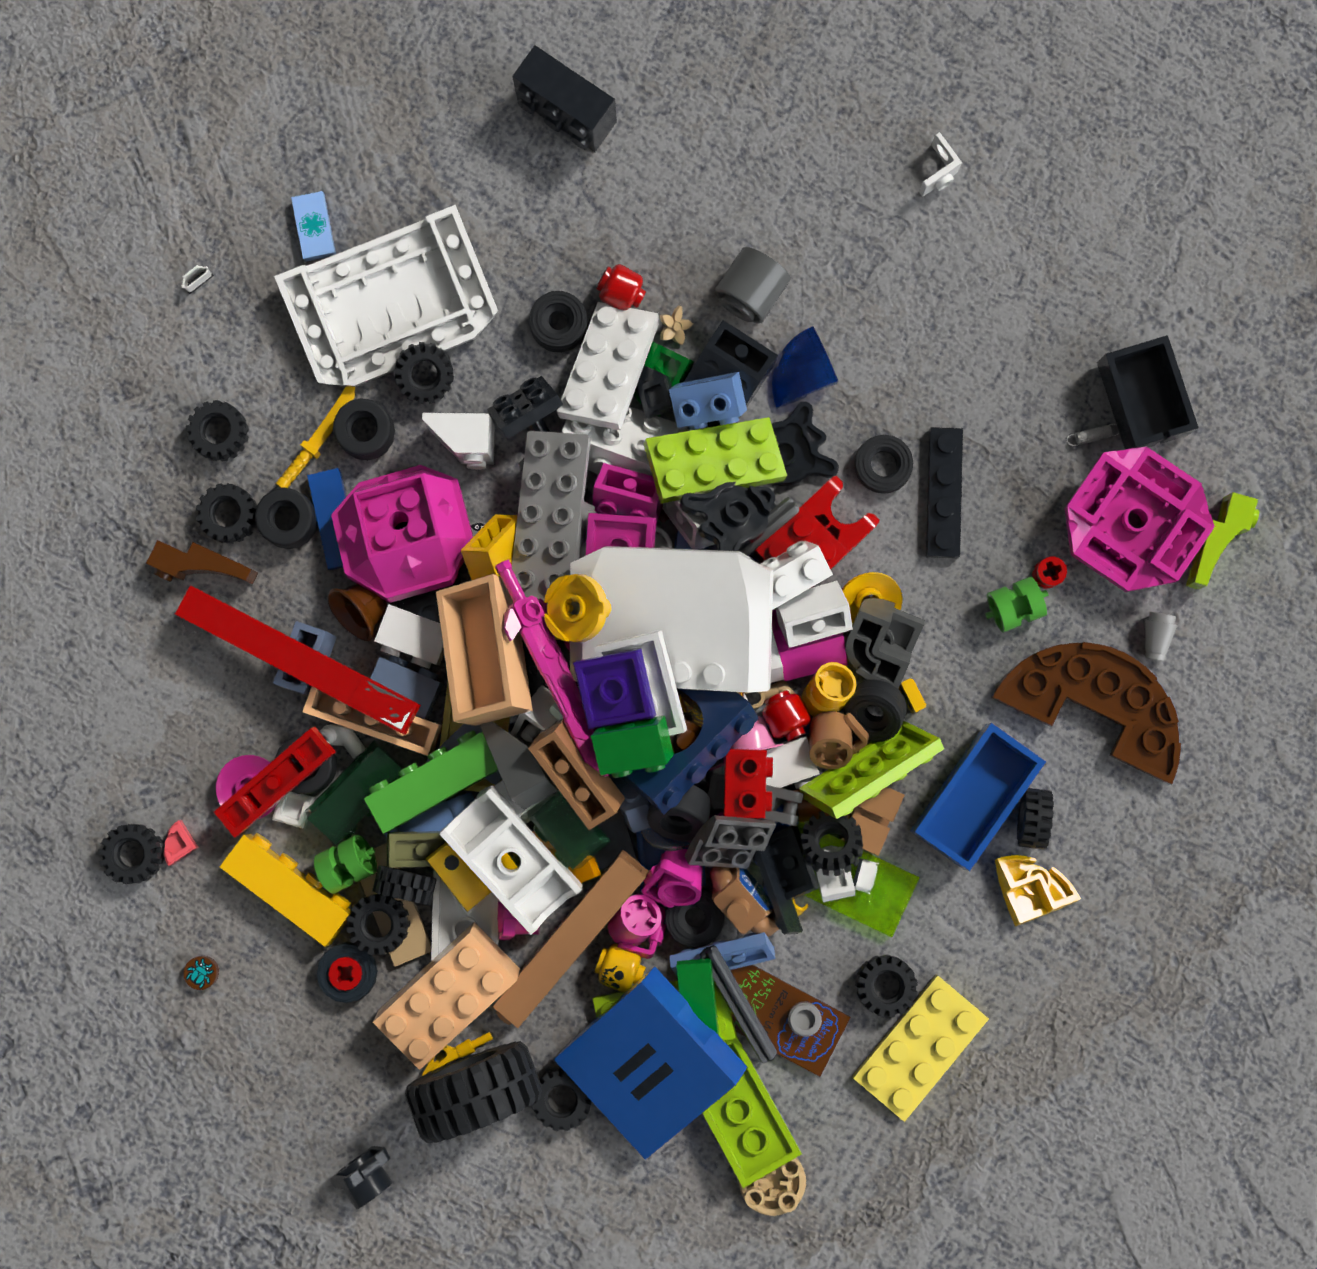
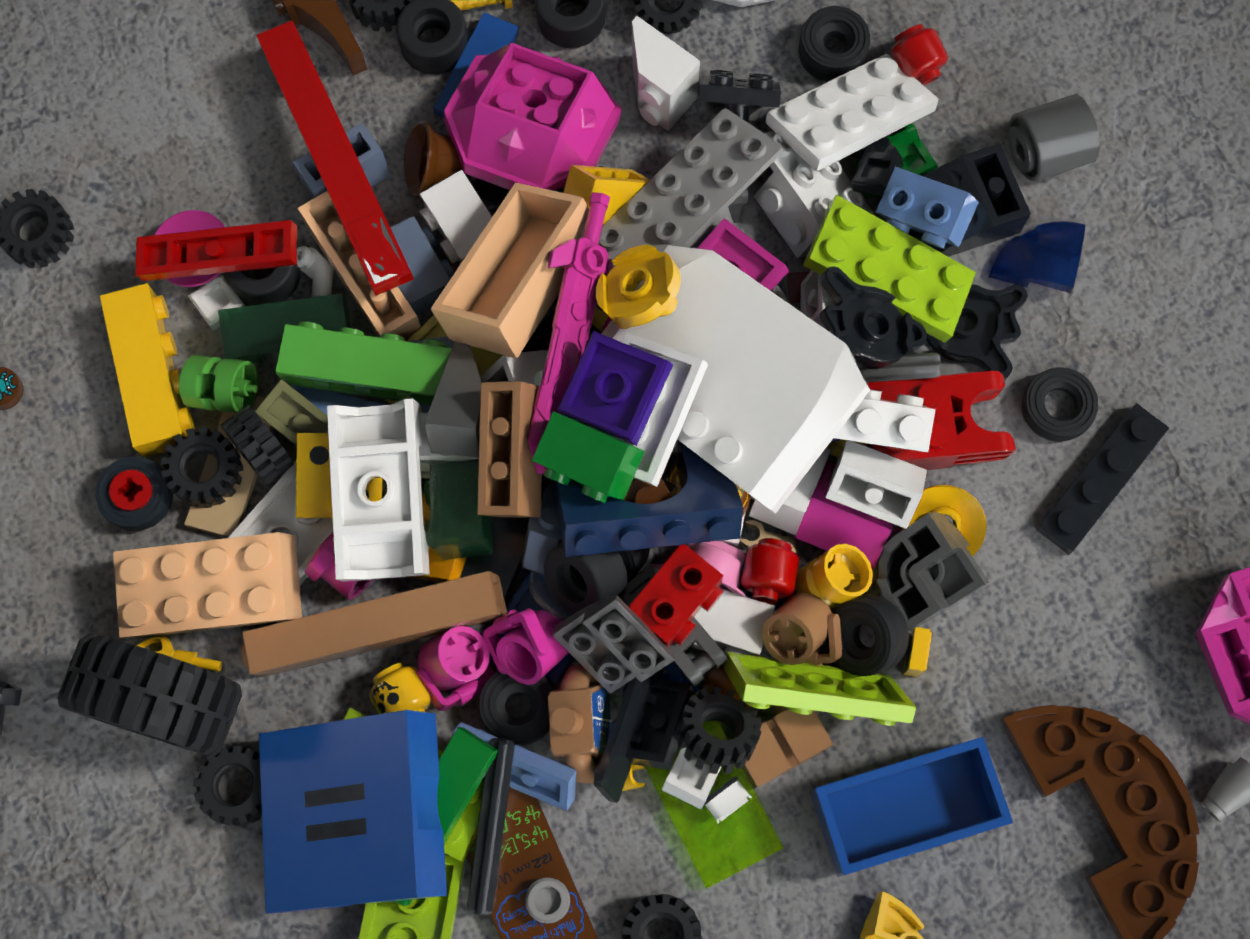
camera: 35 degrees right, 10 degrees down
(178, 843) = (84, 254): coral tile -> none
(625, 493) = (781, 234): dark pink brick -> none
(674, 326) = (945, 127): tan plant -> none
(1013, 605) = (1105, 643): bright green wheel -> none
(1035, 818) = (956, 878): black tyre -> none
(1049, 563) = (1169, 631): red bush -> none

